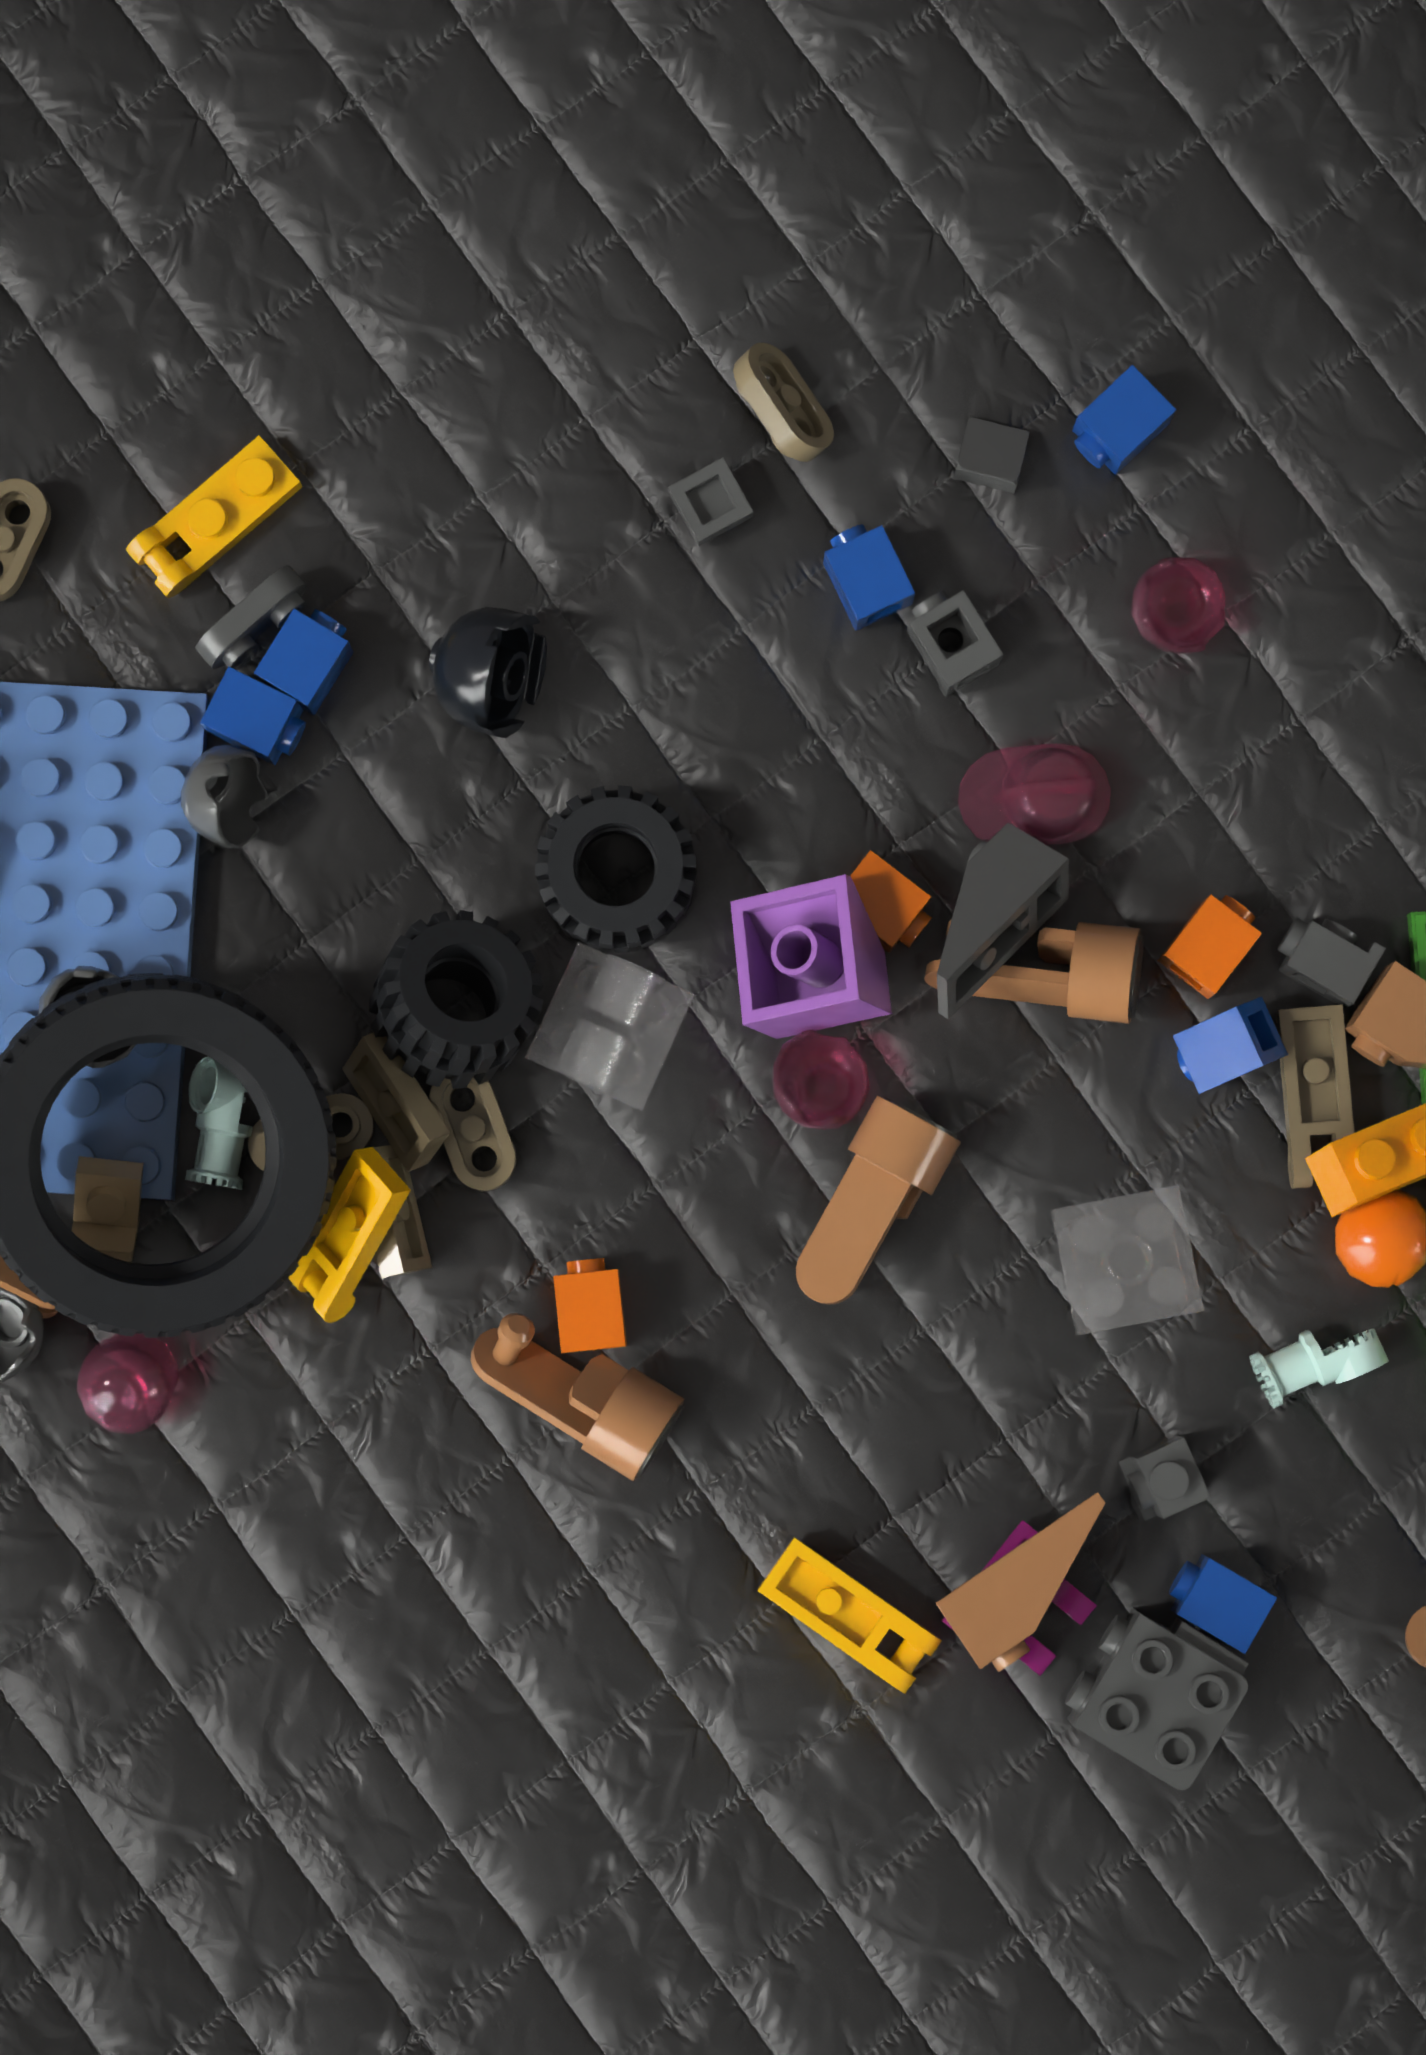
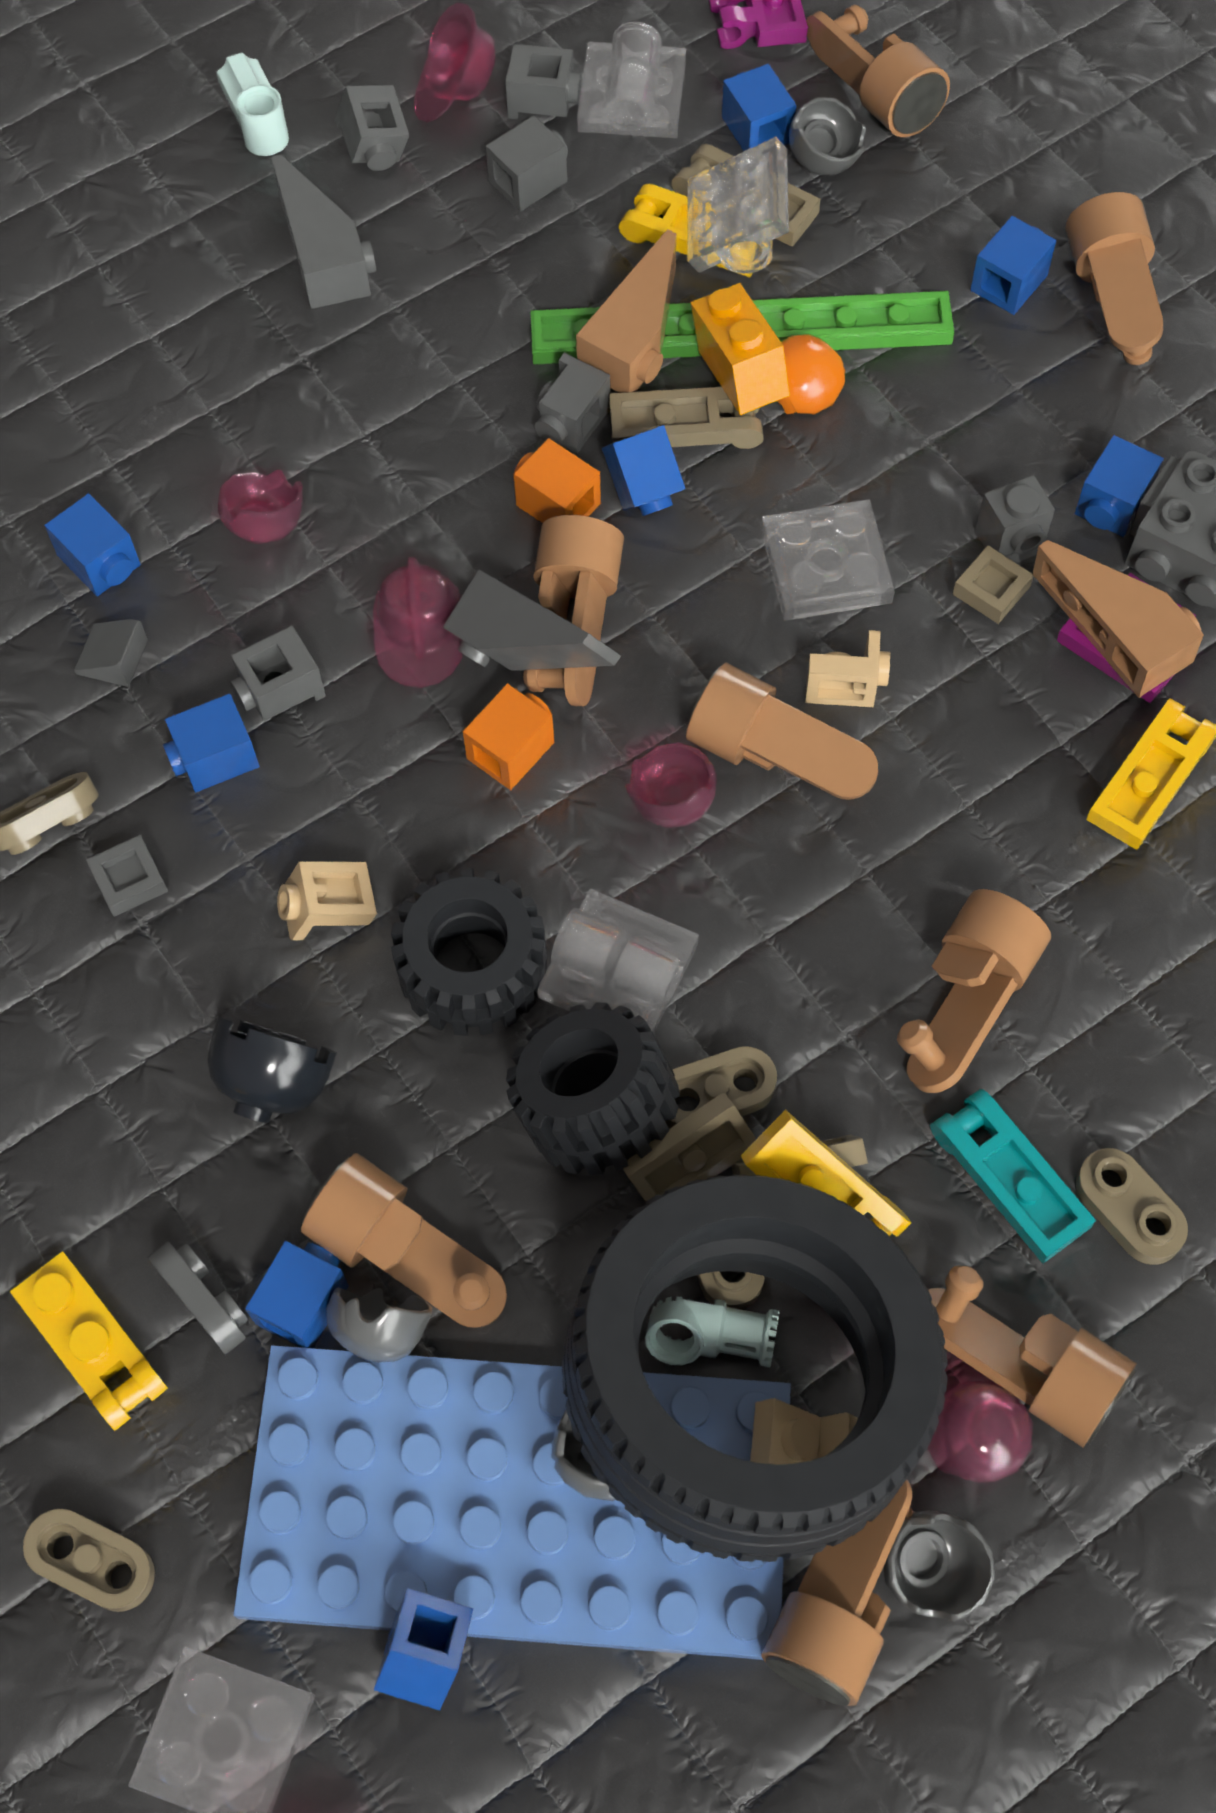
camera: 90 degrees left, 20 degrees down
(172, 1462) = (1056, 1370): none -> medium nougat piece
(306, 658) = (240, 1240): blue brick -> none
(321, 784) = (364, 1216): none -> medium nougat piece
(355, 1550) = (1127, 1207): none -> dark tan plate
(382, 1430) = (1013, 1176): none -> teal plate
(589, 1307) = (887, 982): orange brick -> none
(685, 715) = (326, 897): none -> tan bracket
(808, 959) = (558, 780): medium lavender slope -> none
(961, 1268) = (848, 679): none -> tan bracket
(1089, 1449) = (993, 584): none -> dark tan plate
(1307, 1364) = (909, 420): light aqua connector -> none

